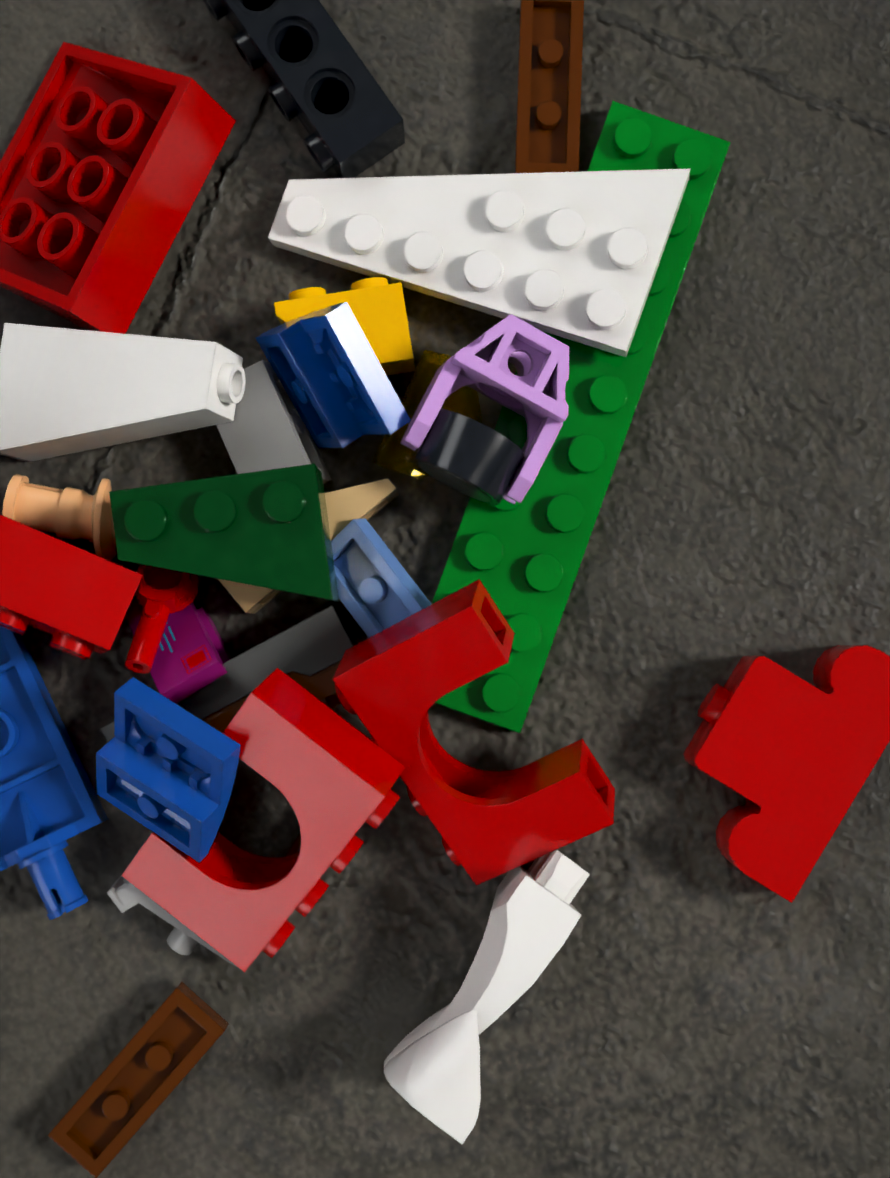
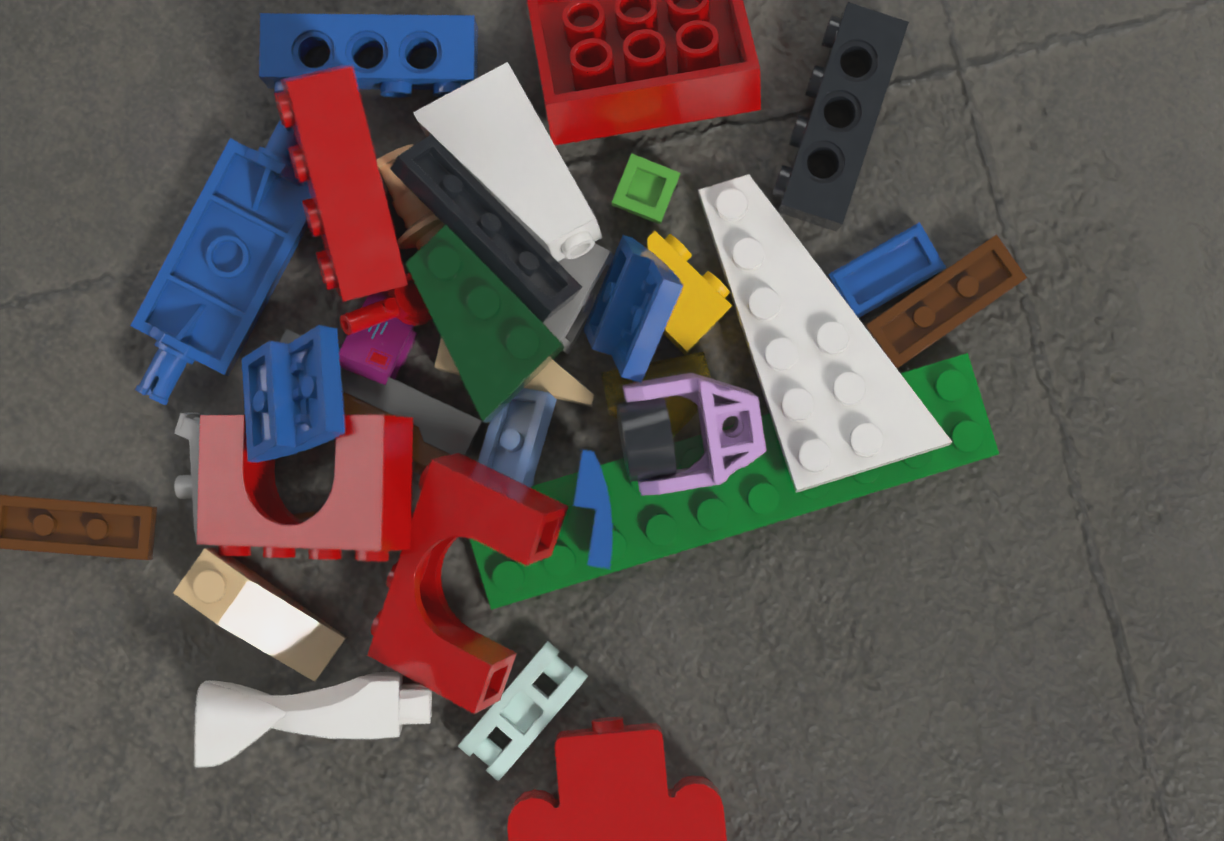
camera: 50 degrees right, 0 degrees up
(143, 457) = (486, 227): none -> black plate
(229, 286) = (645, 189): none -> bright green plate
(355, 960) = (259, 613): none -> tan slope
(478, 116) = (887, 270): none -> blue tile
(484, 544) = (593, 494): none -> blue slope
(640, 774) = (522, 711): none -> light aqua plate

